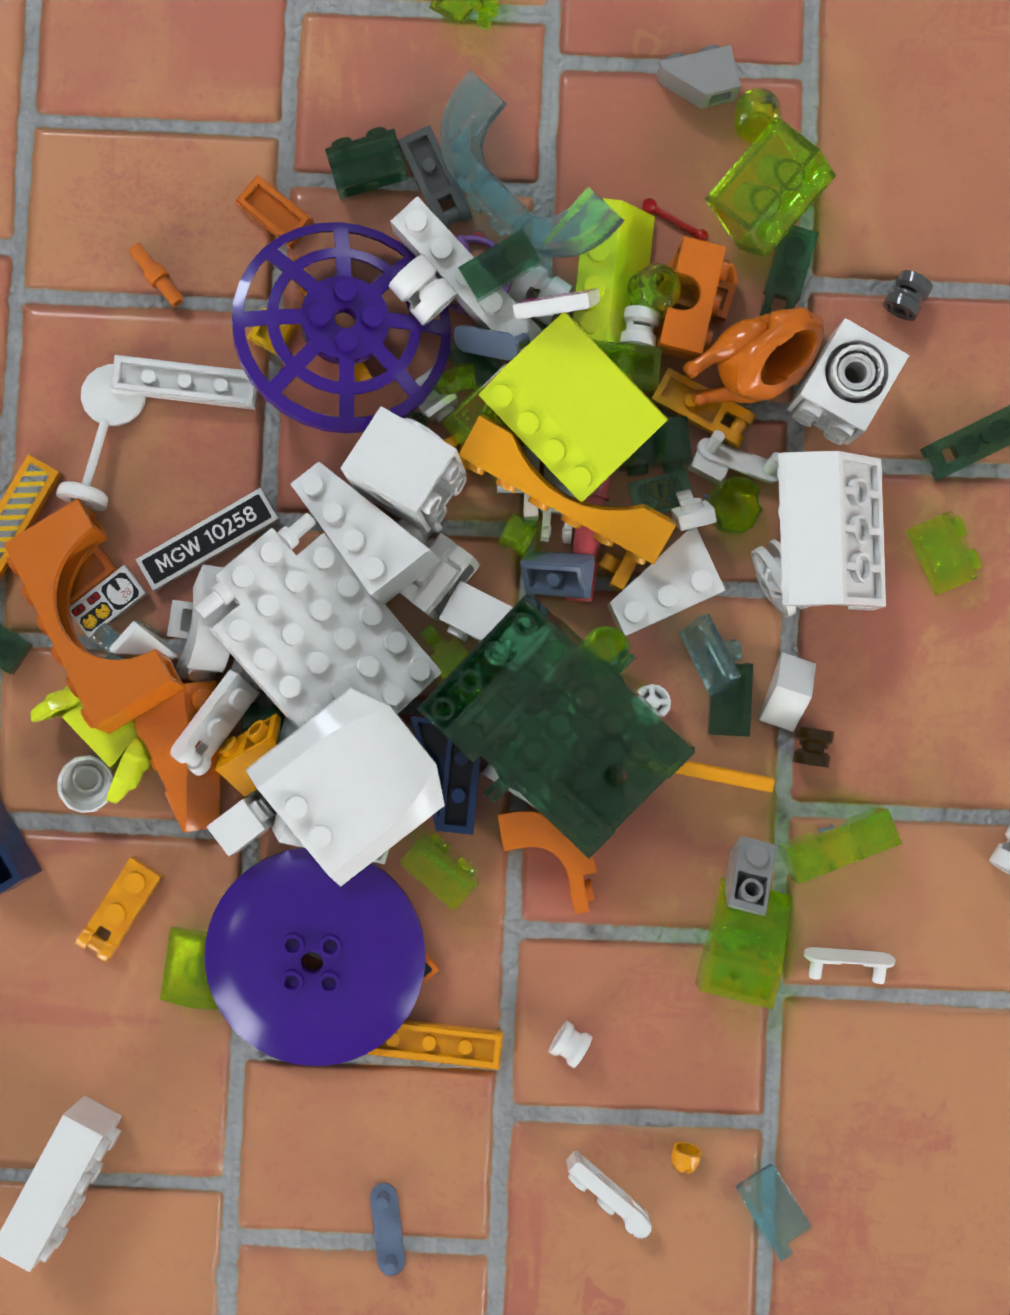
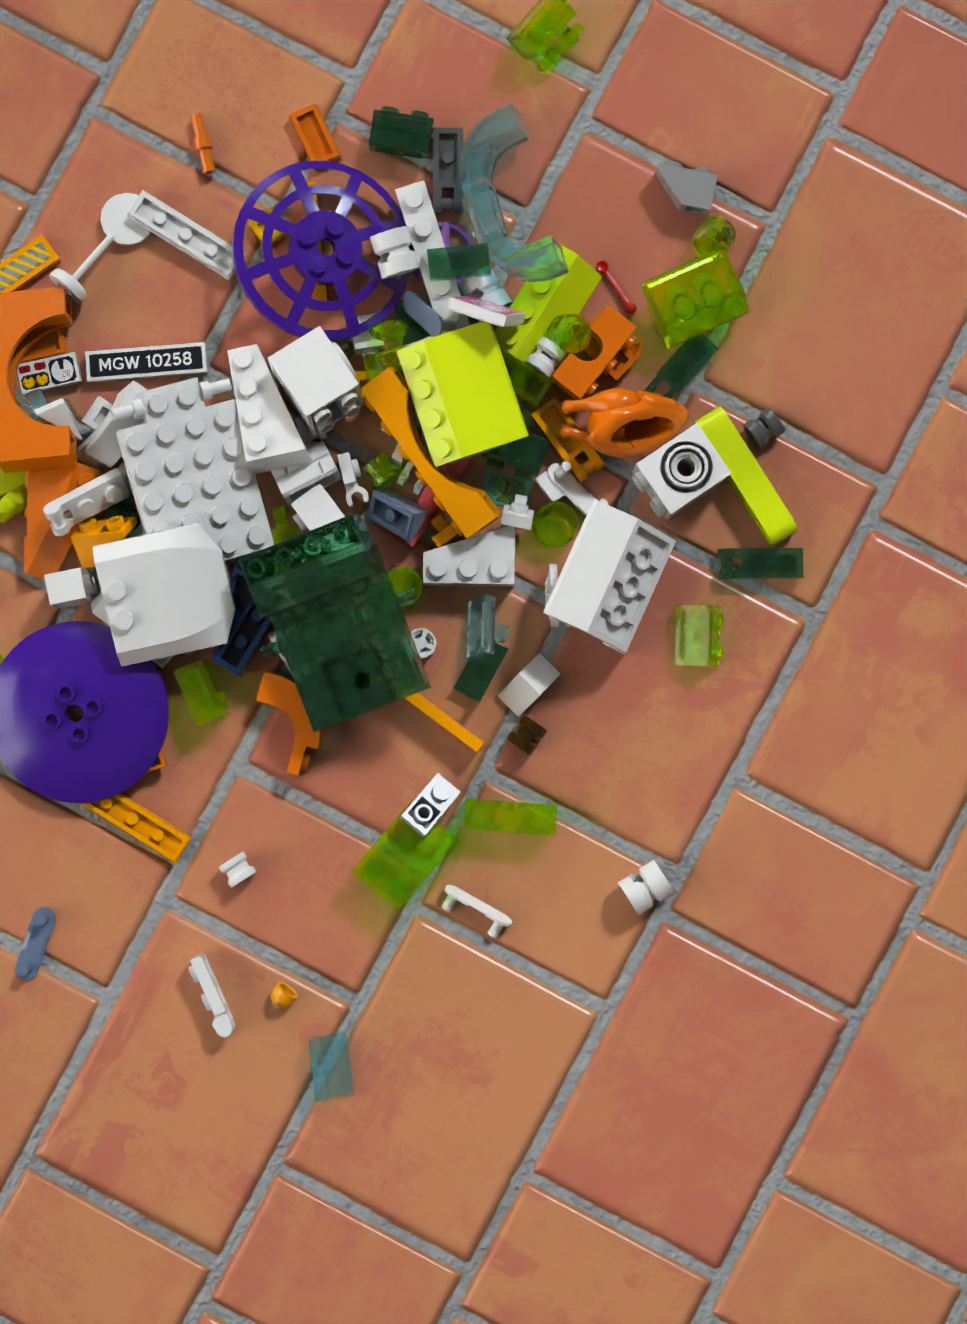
camera: 30 degrees right, 0 degrees up
(485, 551) = (350, 470): none -> white plate
(929, 363) = (748, 478): none -> neon yellow beam

